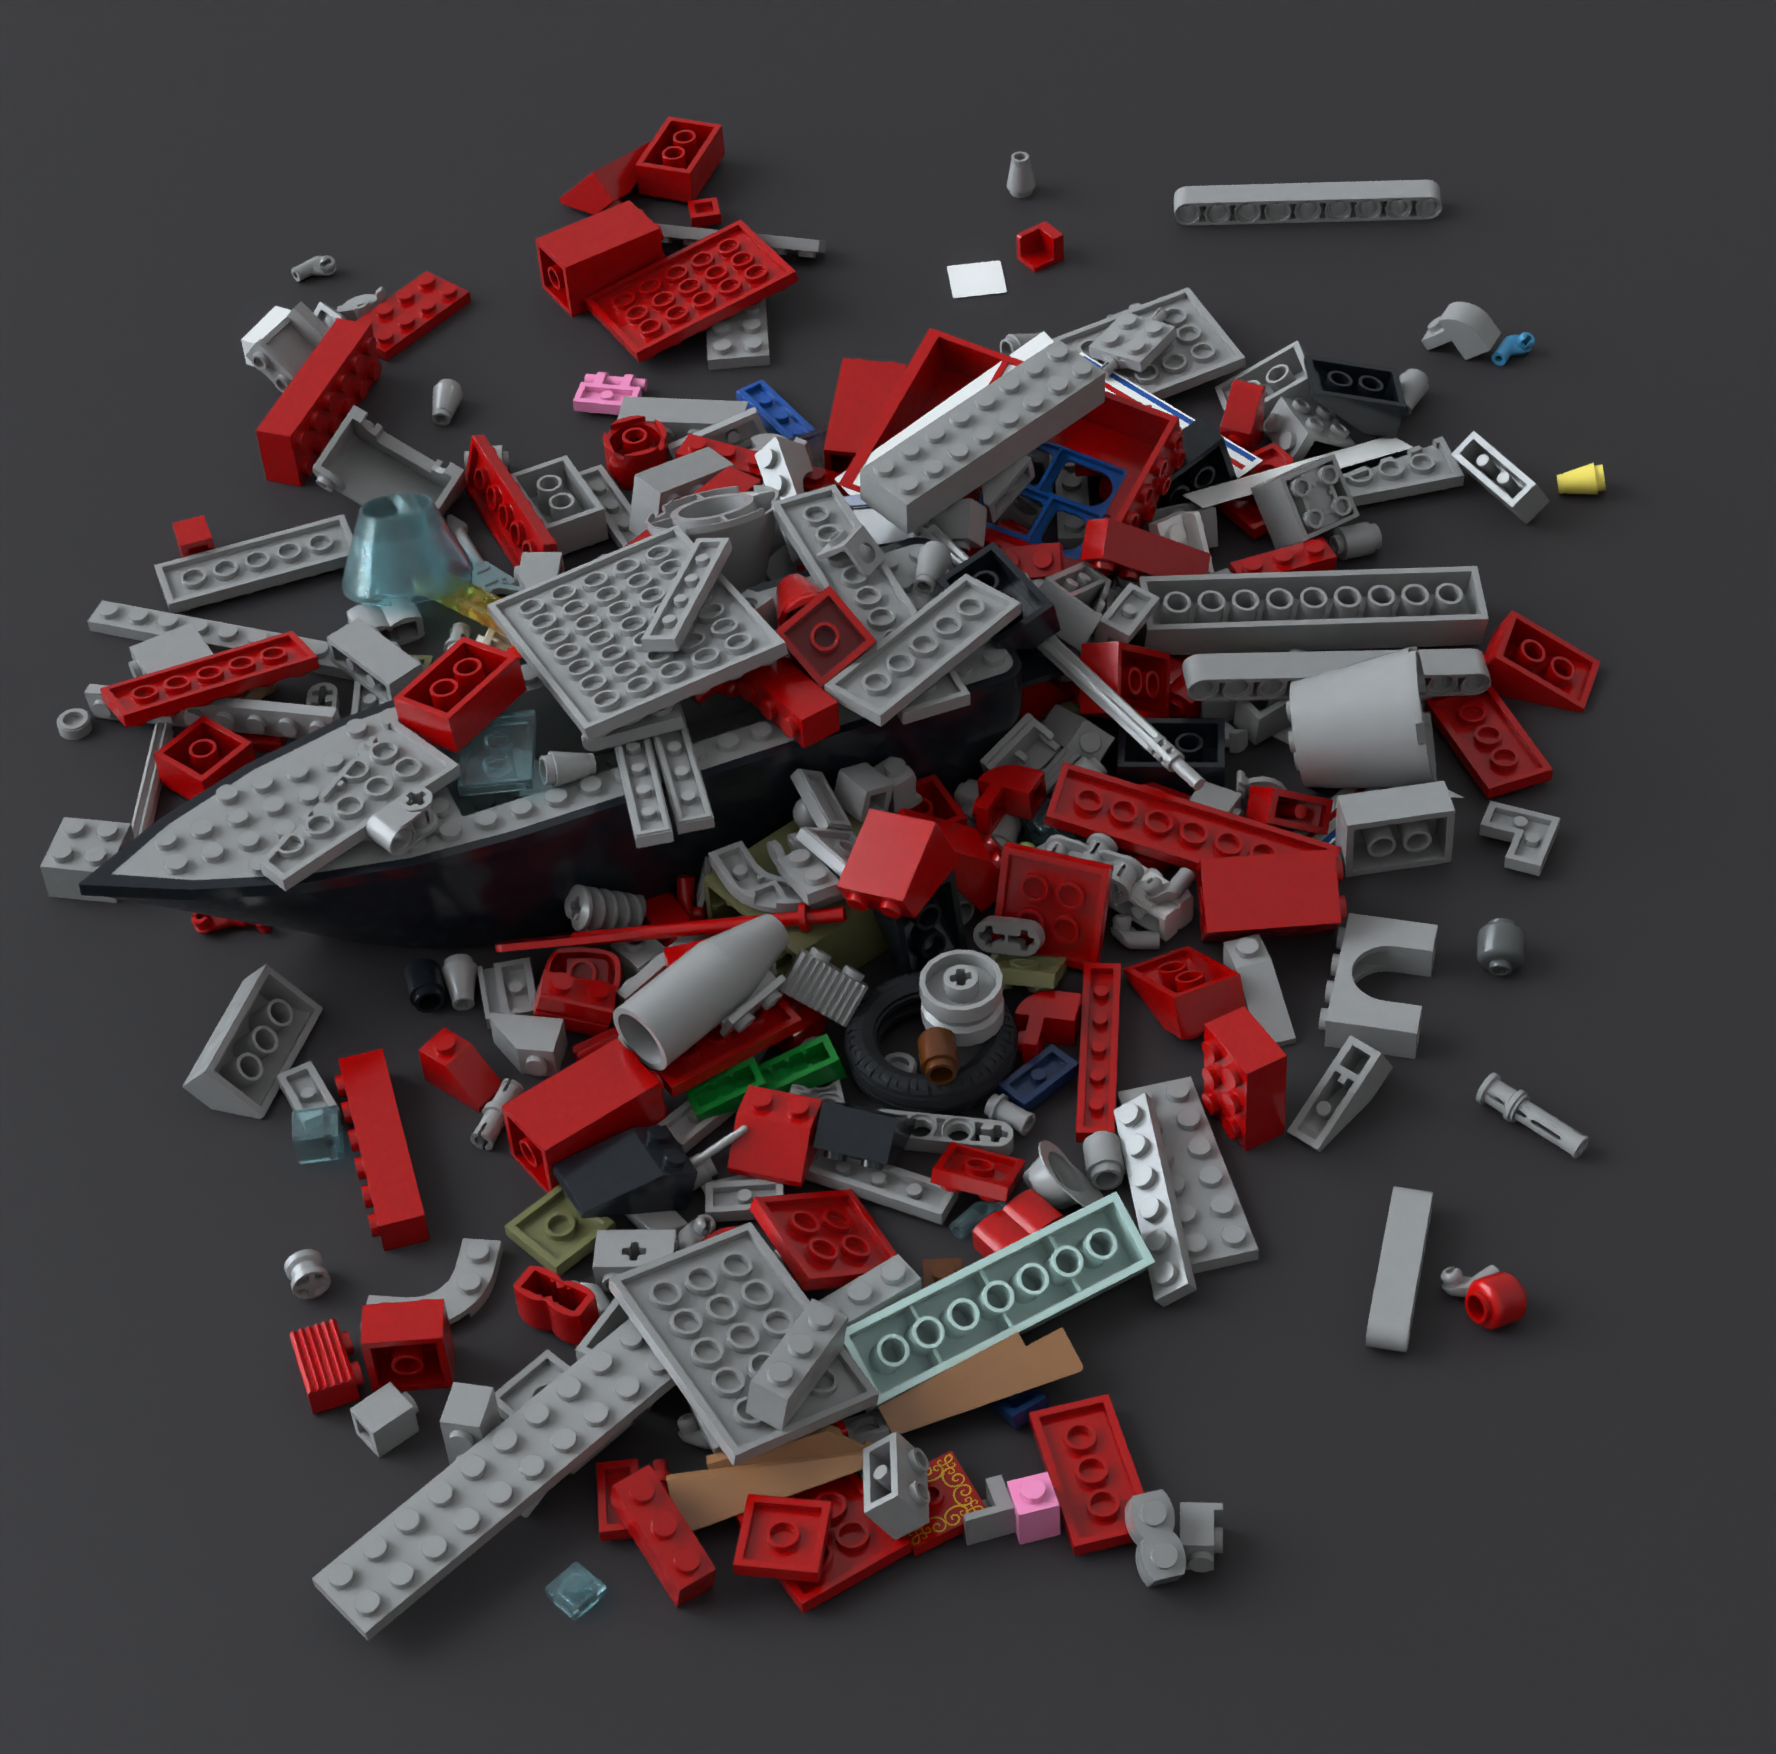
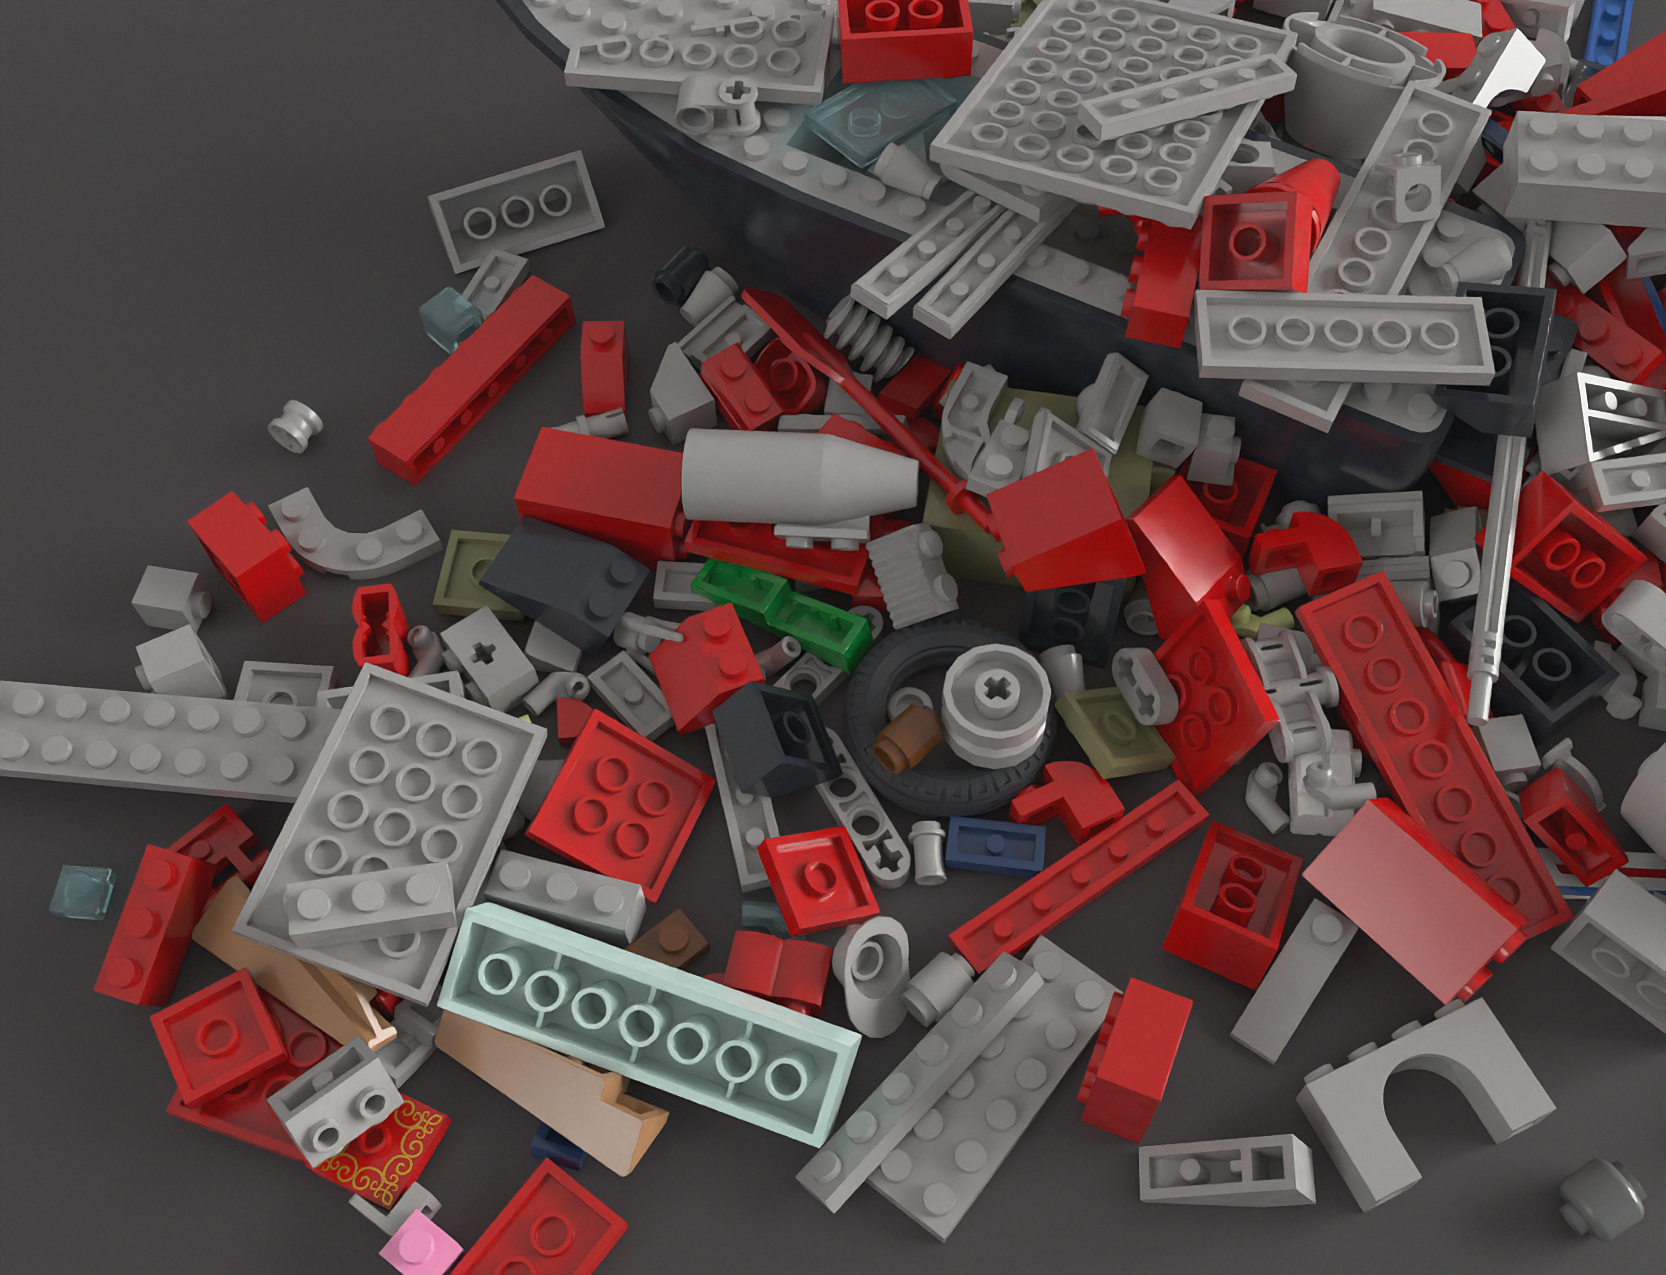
camera: 50 degrees right, 15 degrees up
(325, 1365) = (198, 493): red brick -> none

